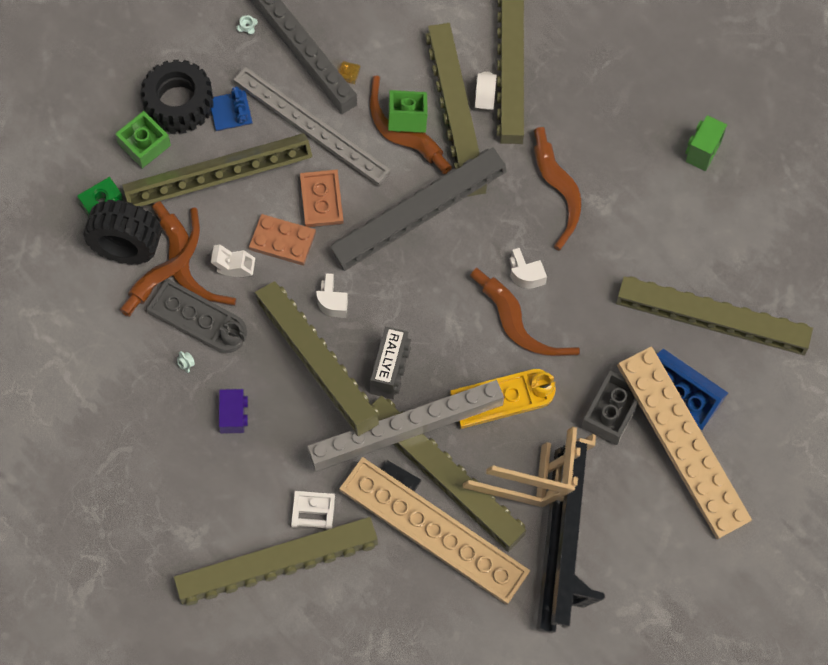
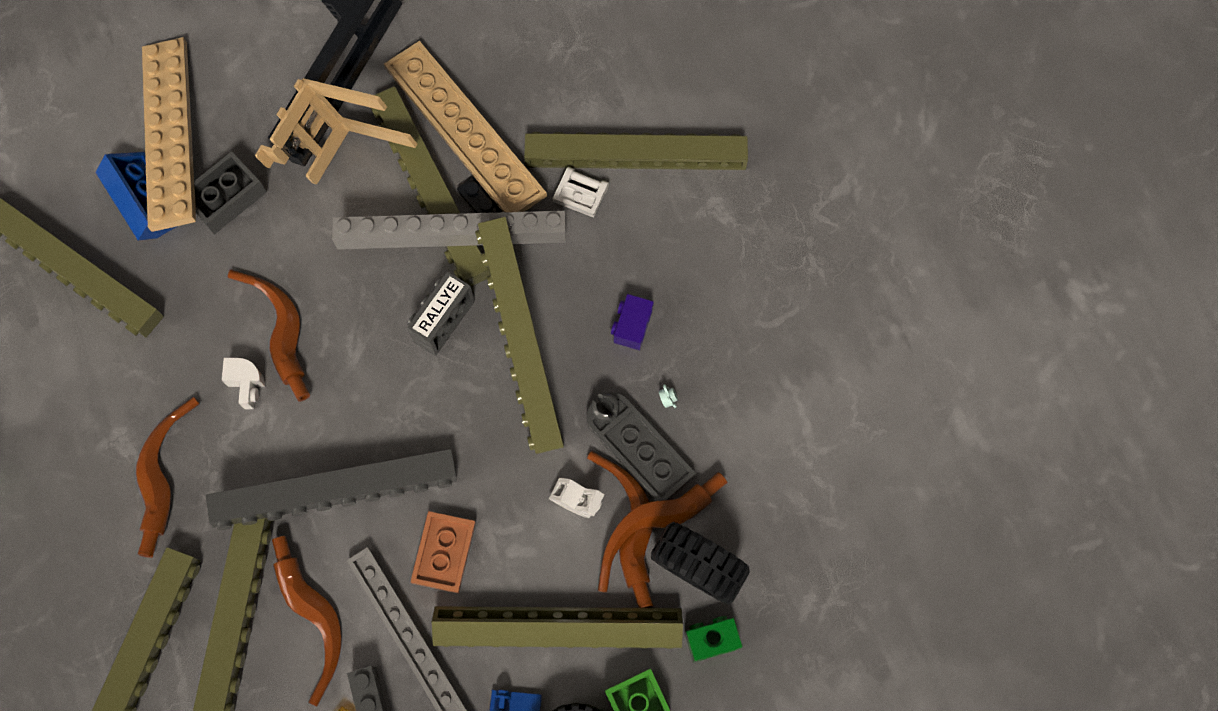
camera: 160 degrees left, 5 degrees up
(282, 239) = (508, 515): nougat plate -> none
(332, 303) = (480, 414): white brick -> none
(407, 111) = (292, 629): bright green brick -> none
(485, 90) = (182, 631): white brick -> none
(521, 394) = (313, 248): yellow plate -> none

